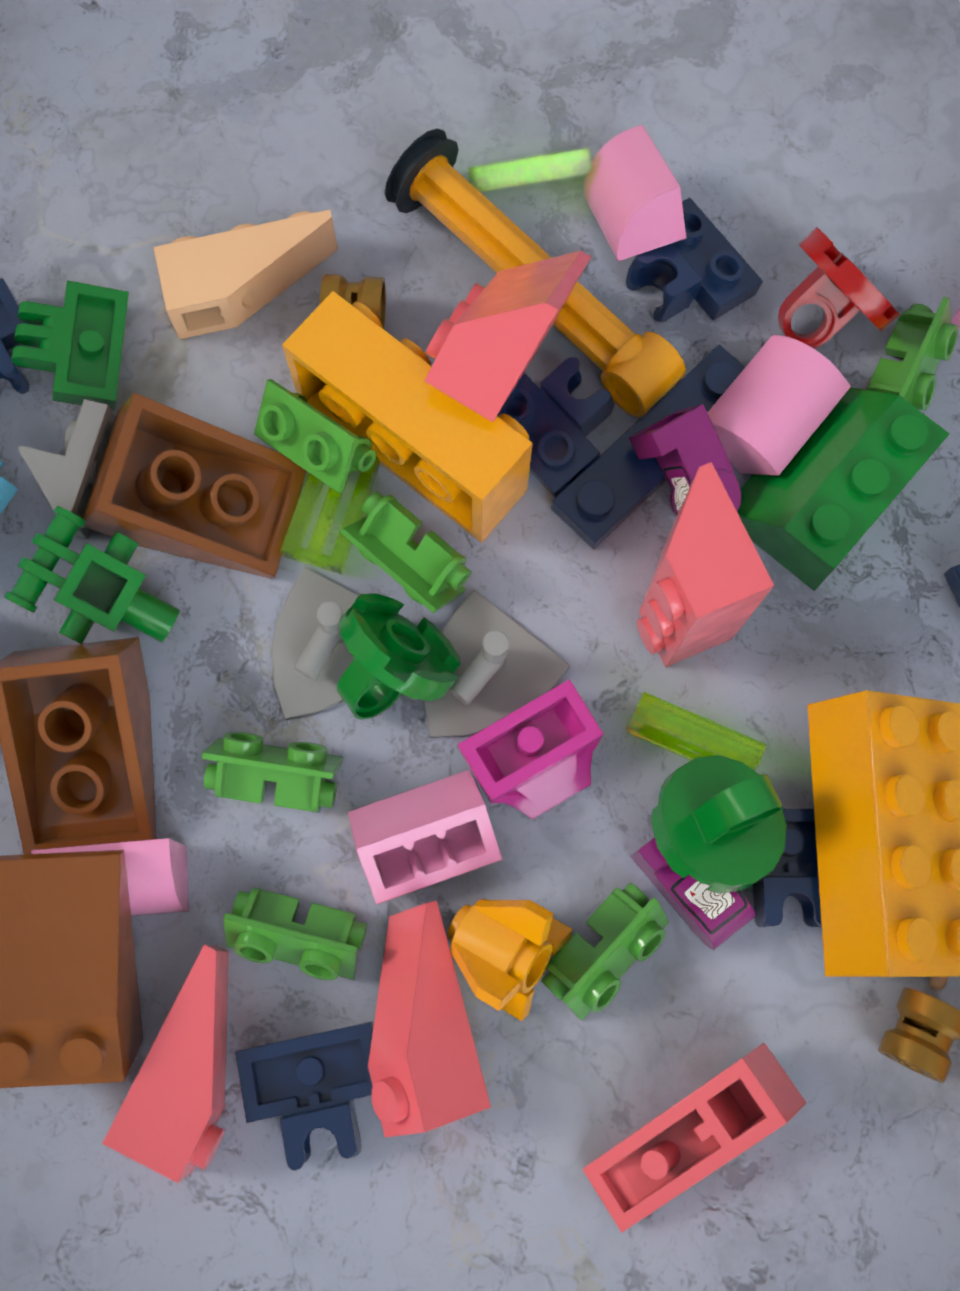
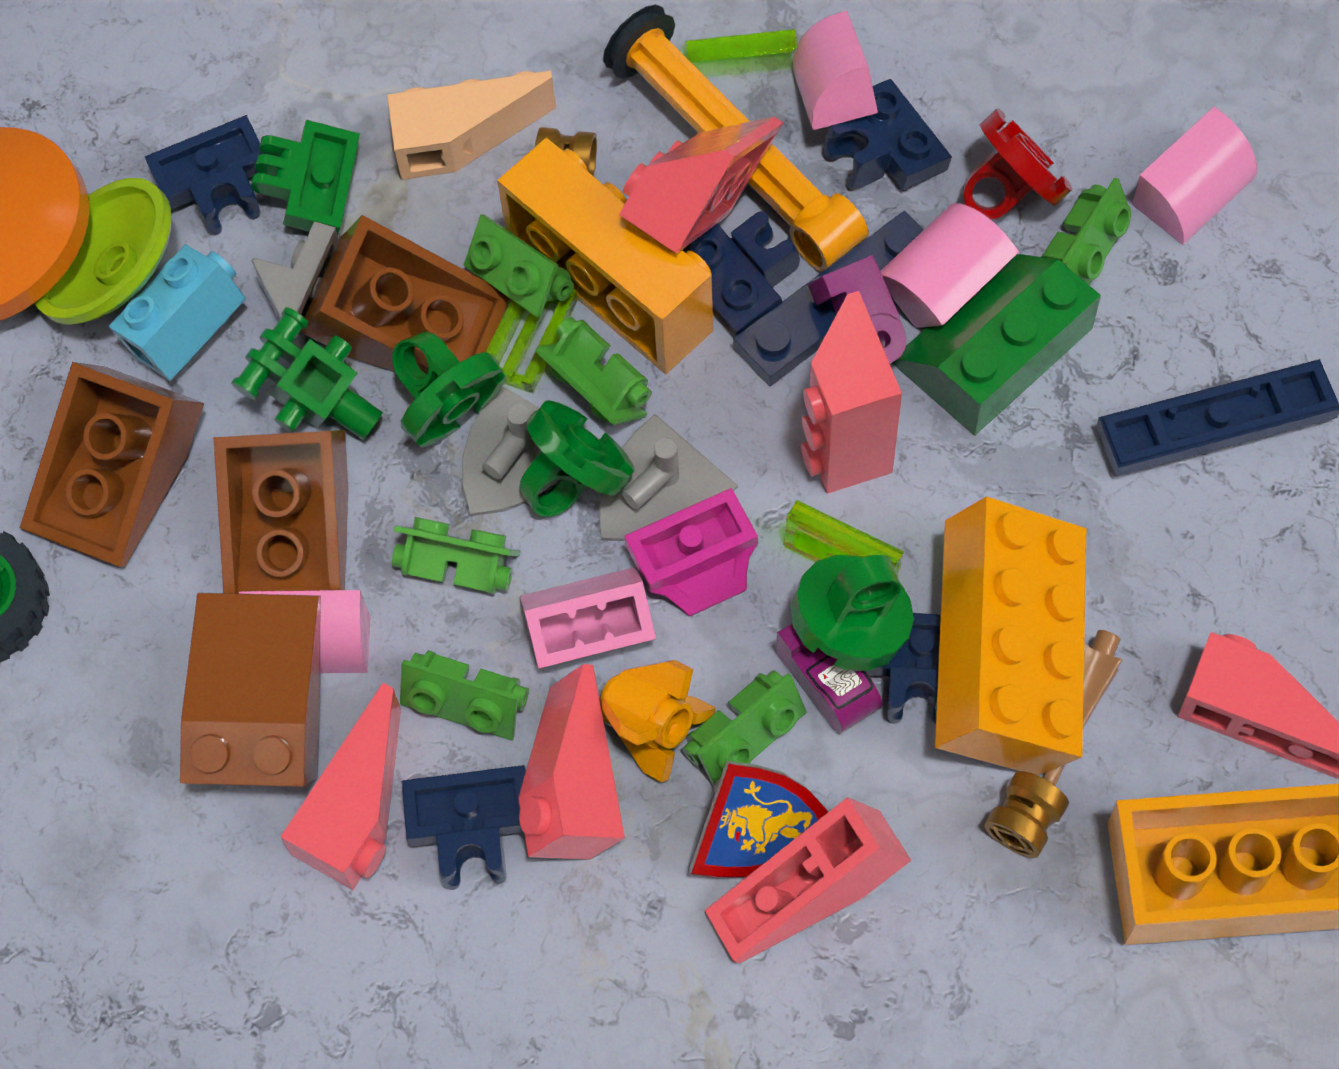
camera: 10 degrees right, 10 degrees down
(245, 584) = (446, 389): none -> green tile
(634, 1073) = (752, 819): none -> shield

